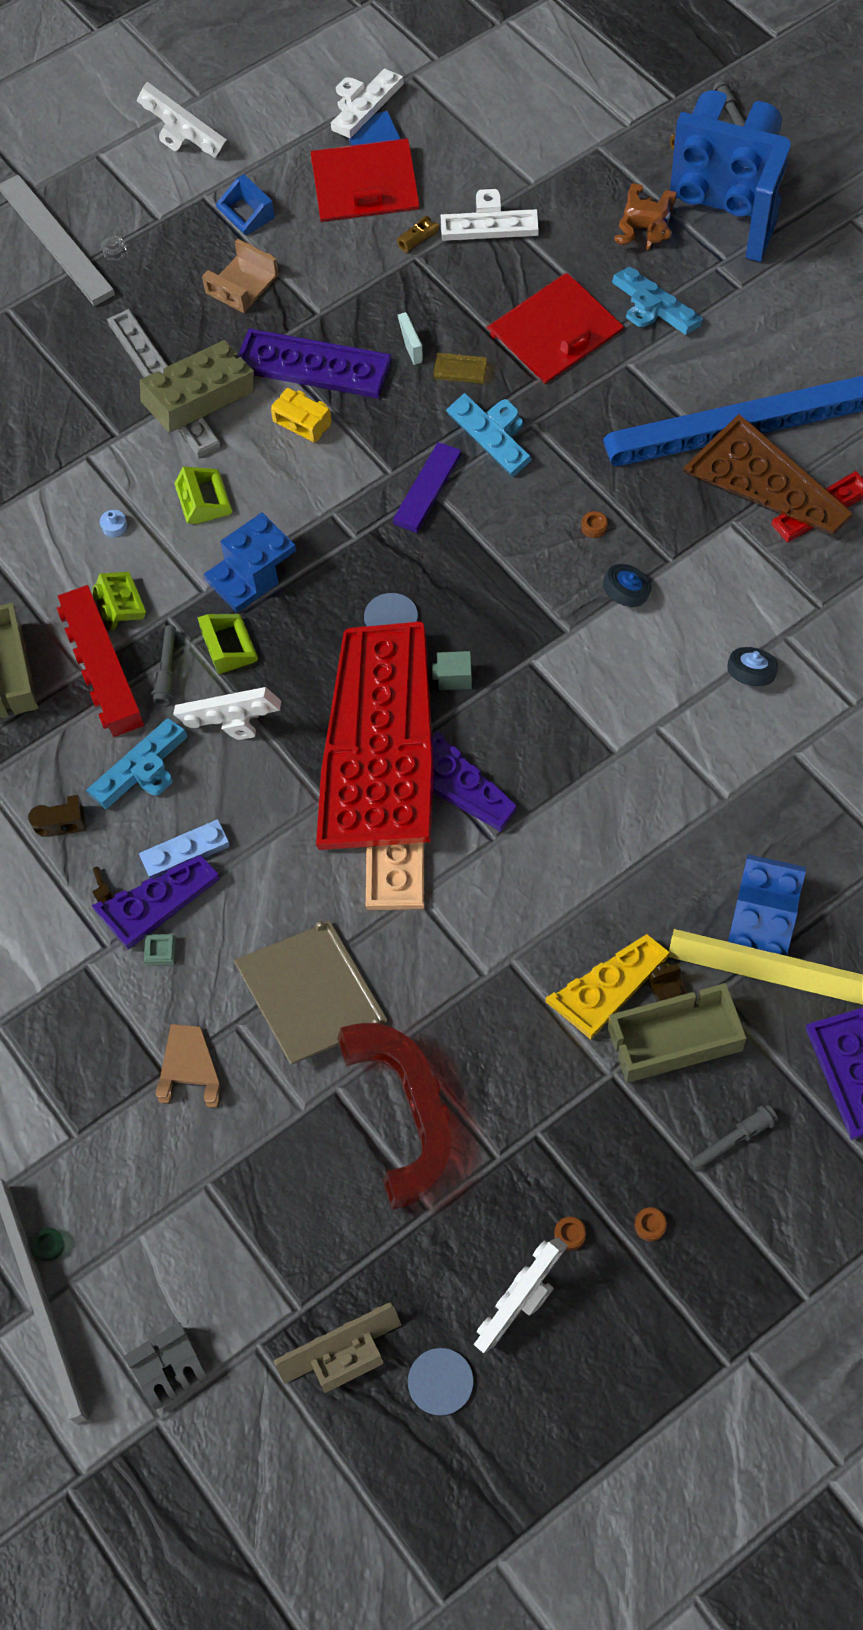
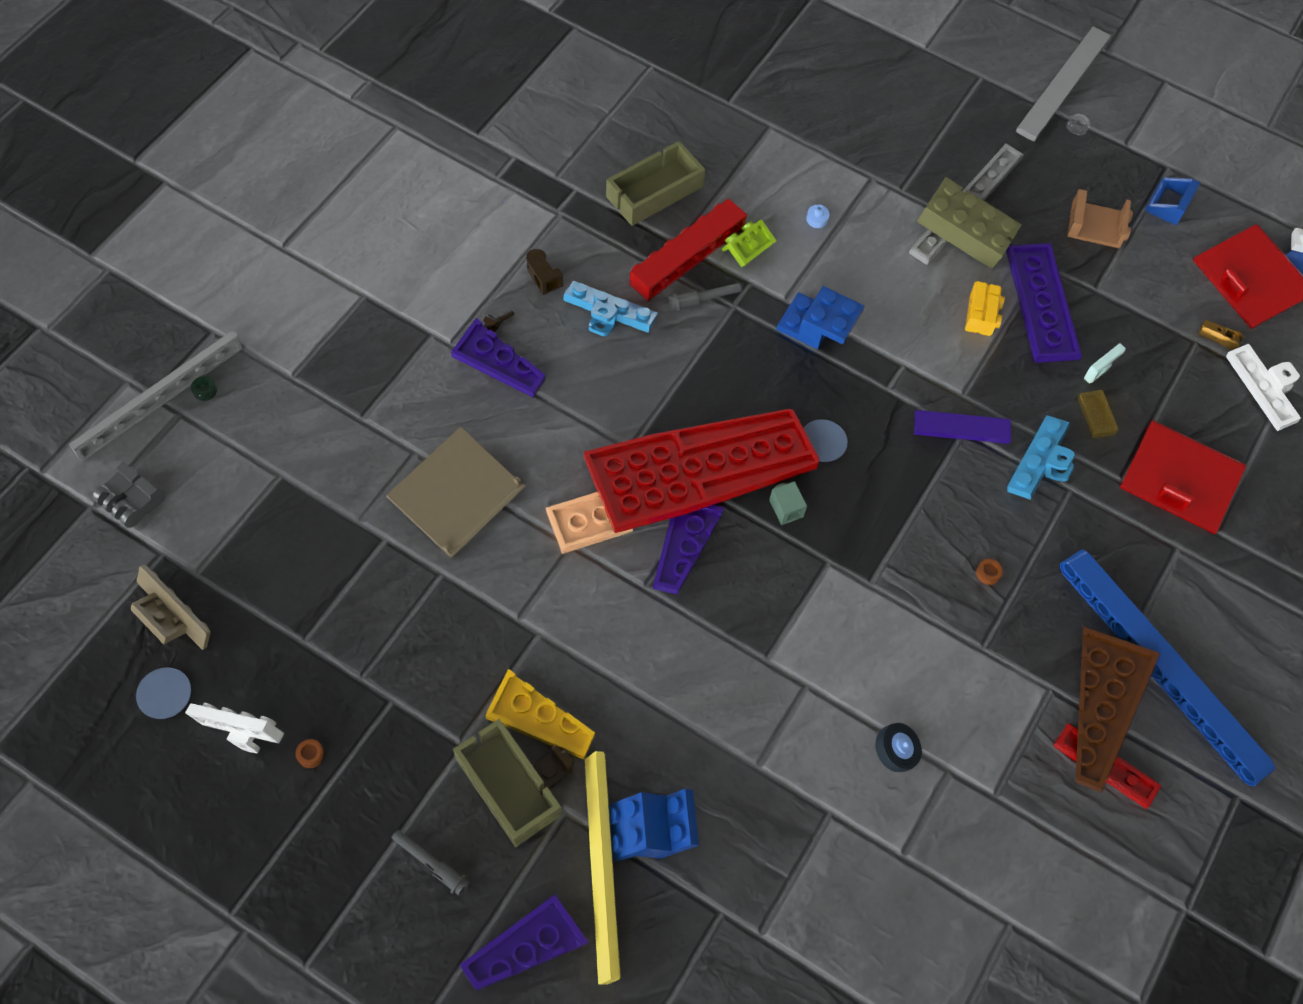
camera: 60 degrees right, 0 degrees up
(159, 949) = (459, 378): sand green tile -> none
(179, 122) = (1221, 118): white plate -> none
(188, 1063) = (371, 429): medium nougat flag -> none
(191, 498) = (880, 249): lime tile -> none
(200, 841) = (549, 363): light blue plate -> none
(226, 661) = (737, 318): lime tile -> none
(231, 709) = (676, 352): white plate -> none
(393, 1048) = (381, 607): clear red arch -> none
(627, 585) = (934, 615): black wheel -> none
(650, 1224) = (335, 815): dark orange tile -> none
(654, 301) = (1257, 548): dark azure plate -> none

